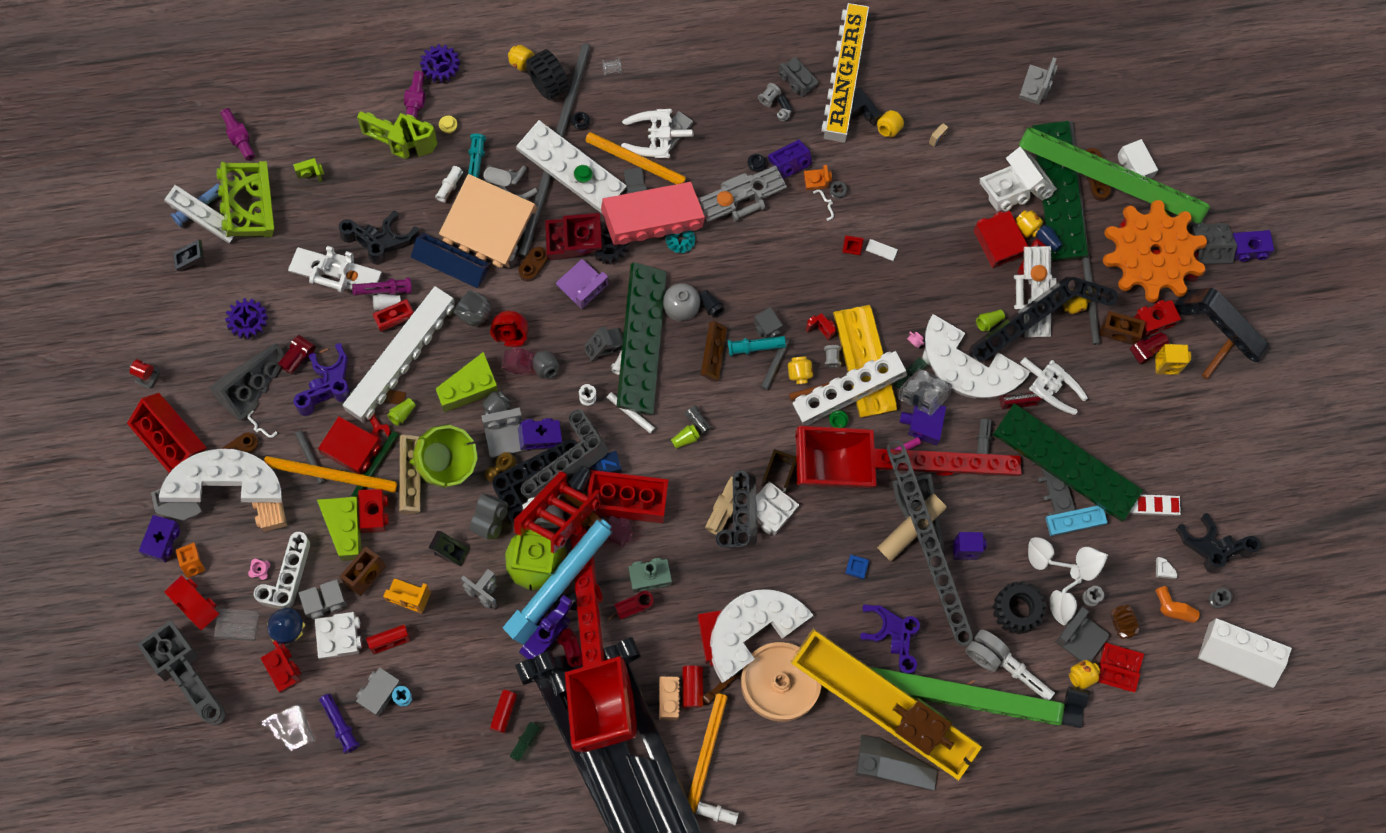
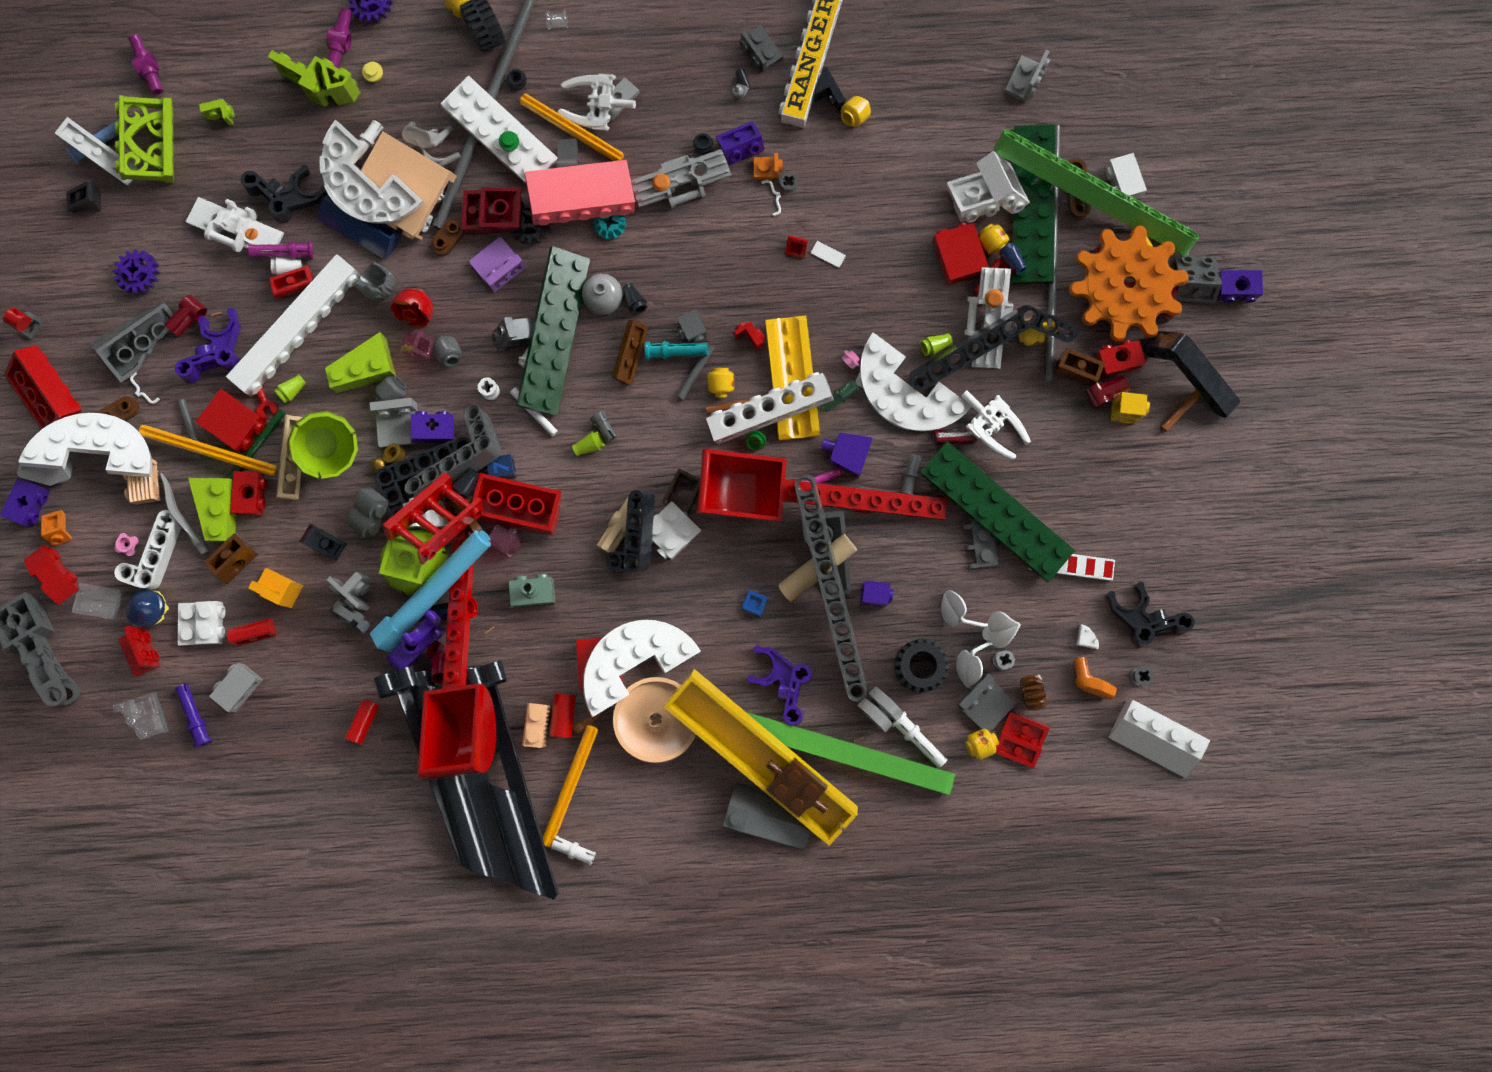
camera: 15 degrees right, 10 degrees up
(325, 557) = (172, 507): none -> light grey piece
(332, 596) = (193, 582): light grey piece -> none
(395, 397) = (286, 371): reddish brown window -> none
(403, 690) = (253, 694): medium azure bush -> none
(449, 229) = (354, 190): none -> white plate
(476, 153) = (399, 108): teal pin -> none
(483, 616) = (353, 620): none -> dark grey plate
(524, 741) = (382, 754): clear green axle -> none
(632, 606) = (511, 622): dark red piece -> none
(771, 89) = (726, 66): light grey bush -> none
(832, 356) = (757, 369): light grey bush -> none
(925, 391) = (851, 419): clear piece -> none
(938, 135) = (907, 128): tan tile -> none
(1075, 520) = (997, 575): medium azure plate -> none
(1075, 702) = (966, 776): black panel -> none

